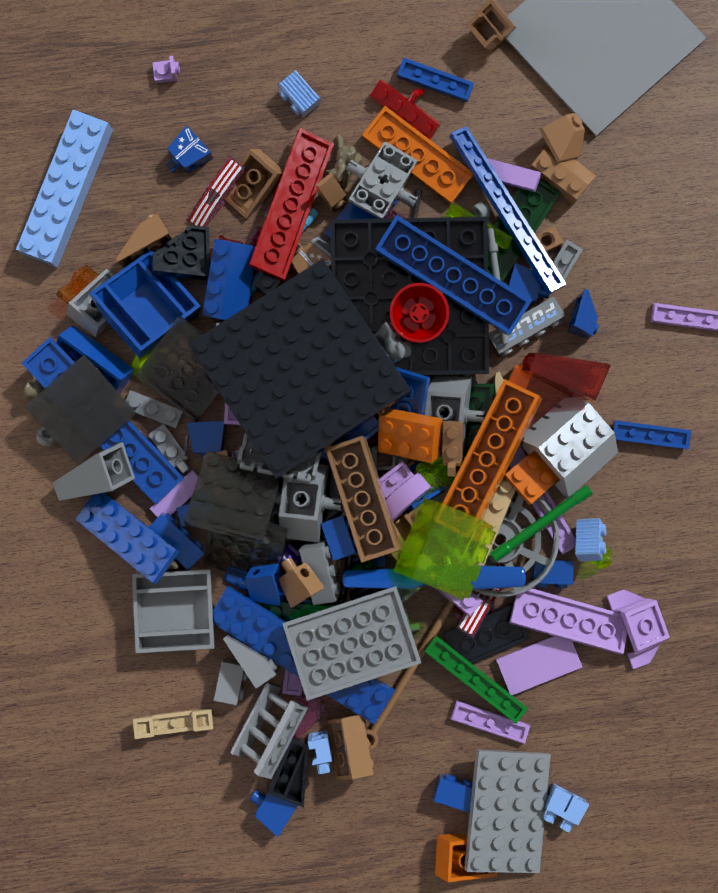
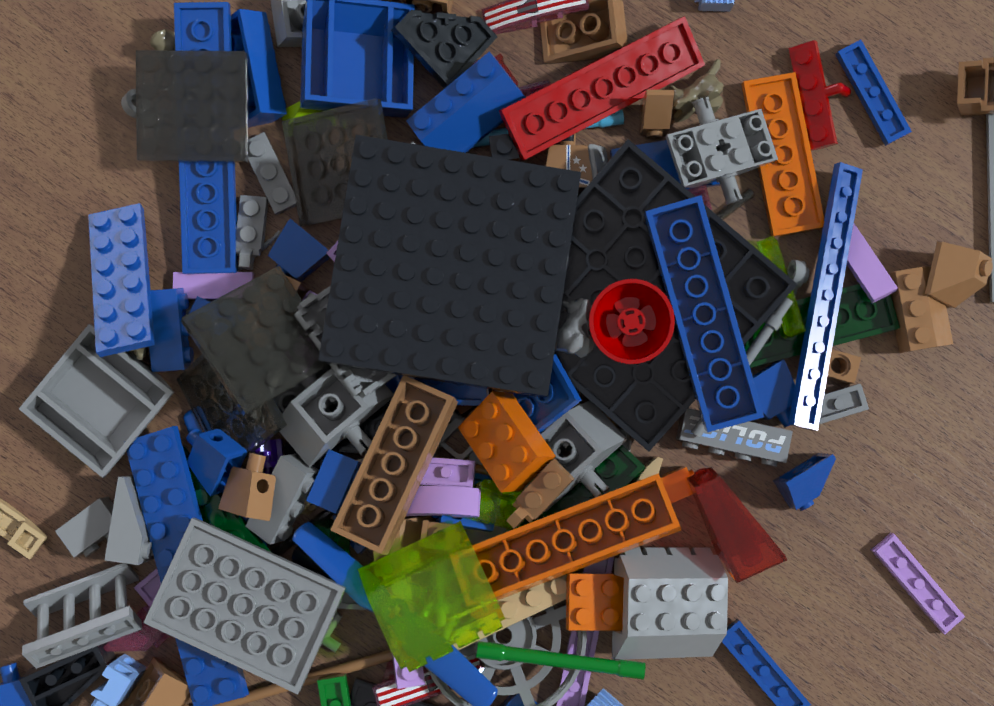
camera: 40 degrees right, 0 degrees up
(96, 475) = (147, 188): light grey slope -> none

